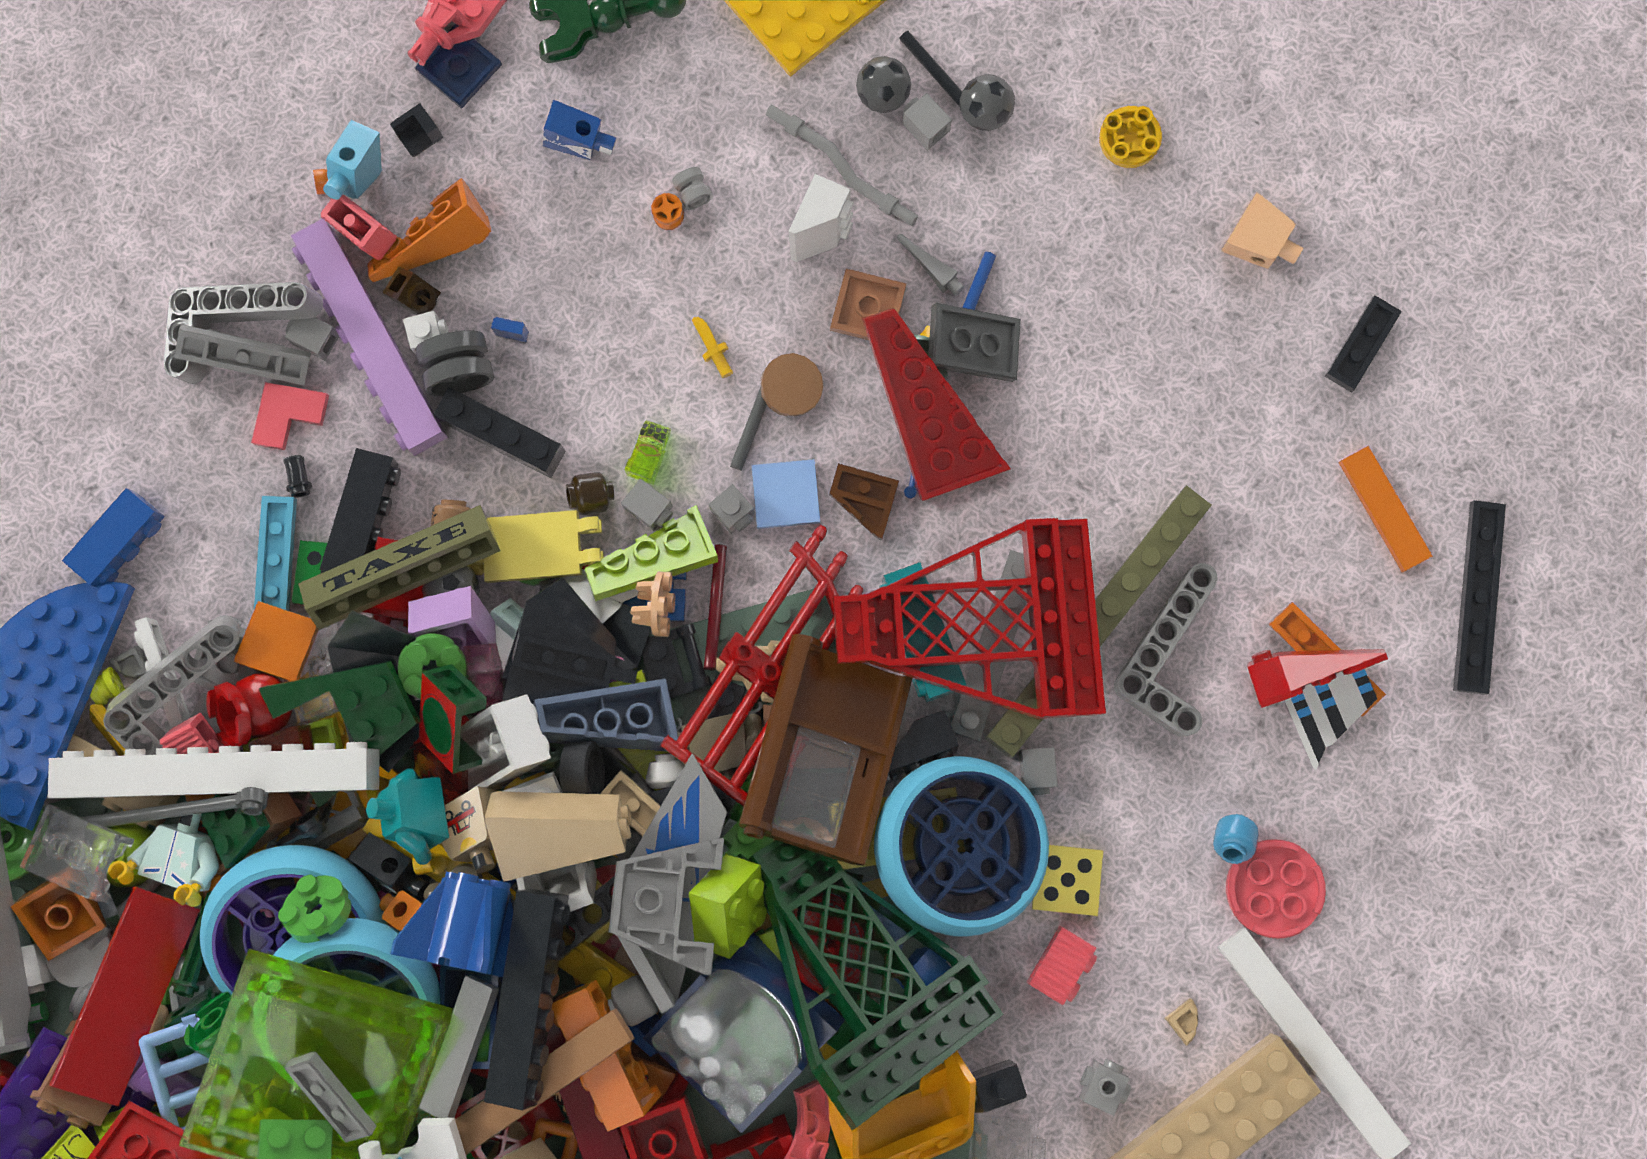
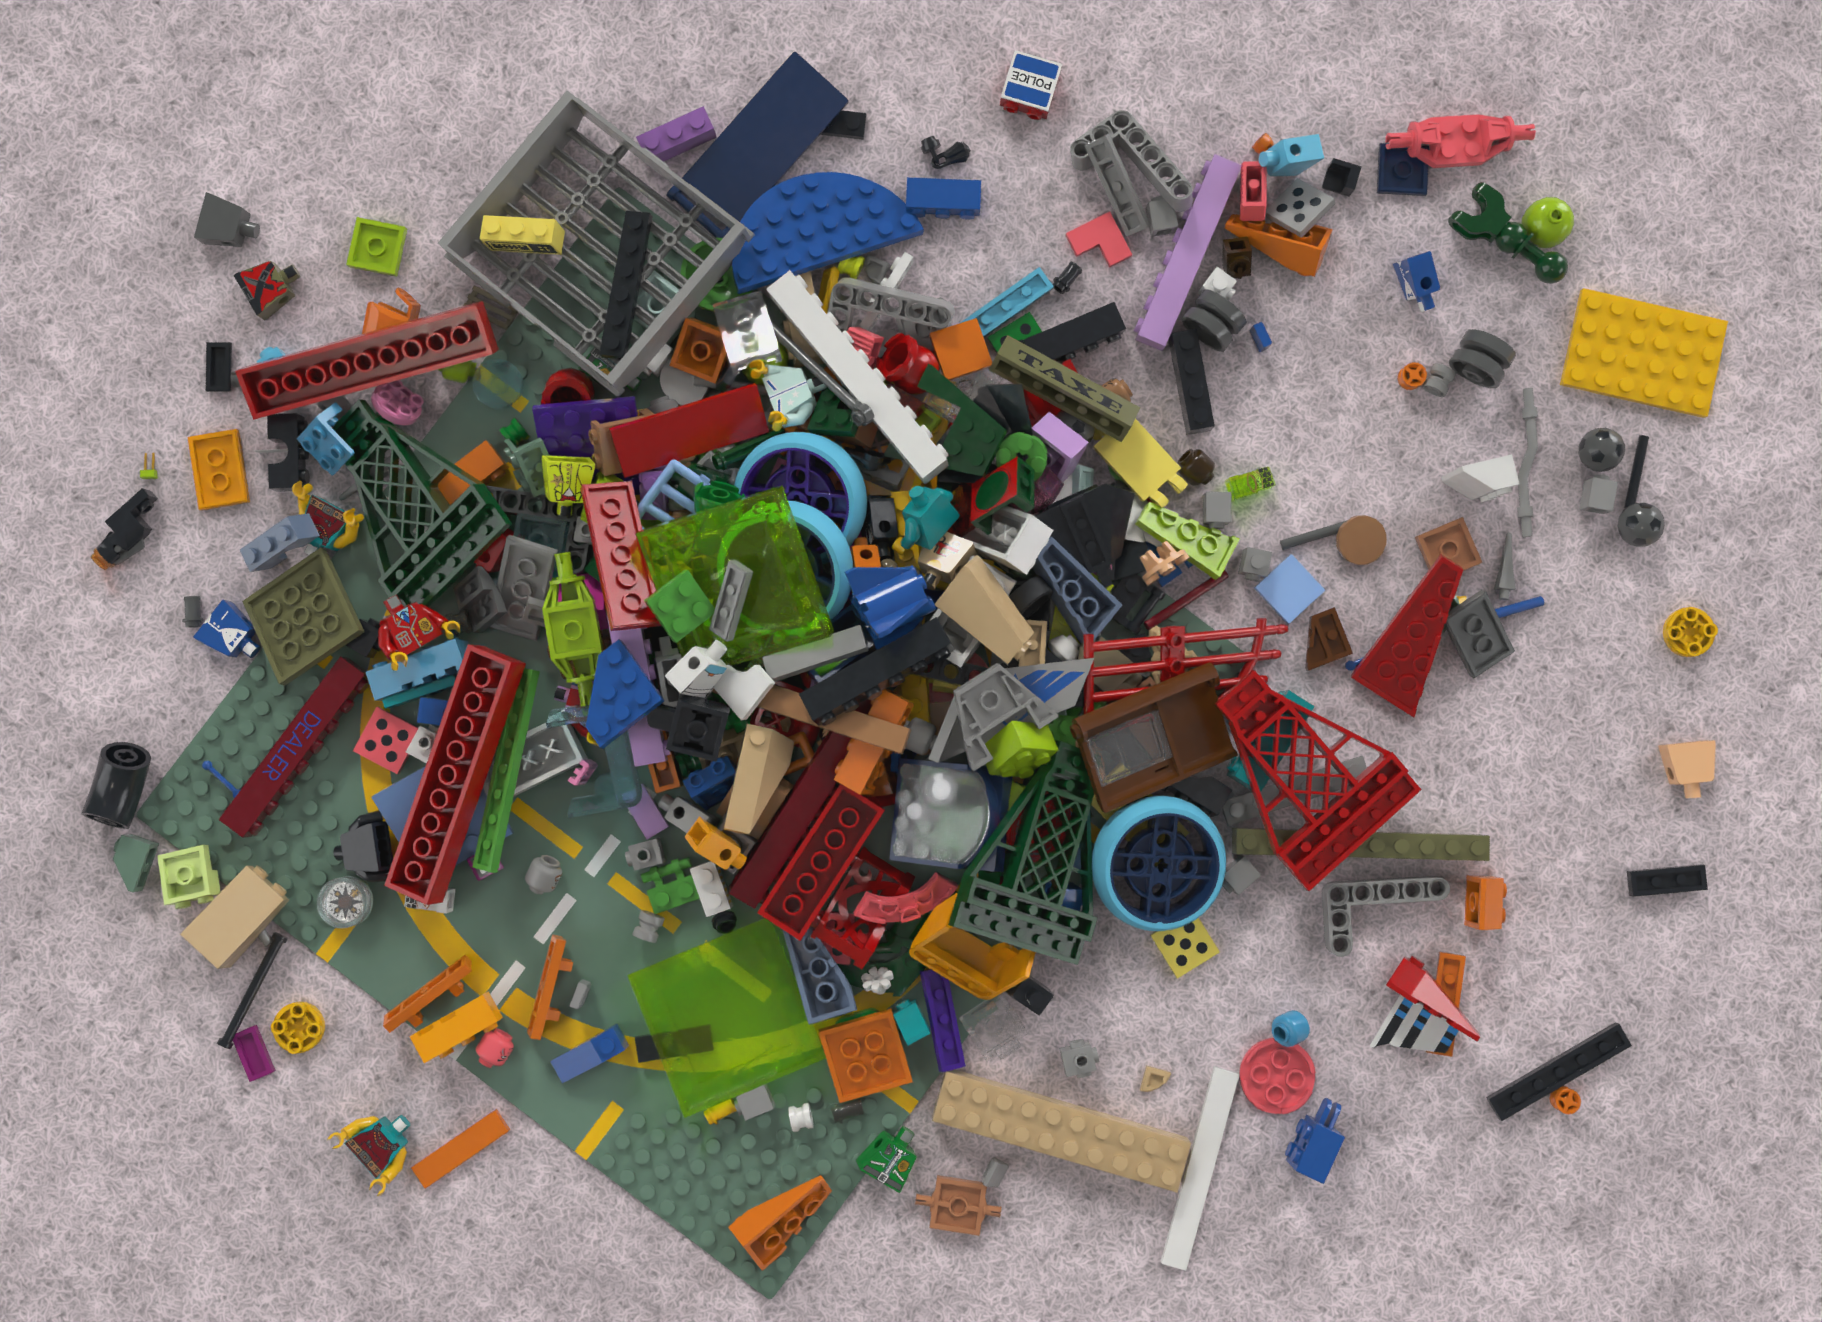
camera: 50 degrees right, 5 degrees up
(75, 364) = (1030, 85): none -> piece
(82, 491) = (955, 154): none -> black piece
(308, 893) = (835, 493): bright green plate -> none
(412, 193) = (1299, 207): none -> light grey tile
(702, 130) = (1482, 358): none -> dark grey wheel
(715, 350) = (1345, 474): yellow piece -> none
(1062, 966) = (1131, 979): coral brick -> none
(1252, 540) = (1484, 902): none -> orange slope
(1375, 904) = (1316, 1142): none -> blue brick
(1385, 509) = (1569, 971): orange tile -> none
(1520, 609) = (1570, 1102): none -> orange wheel

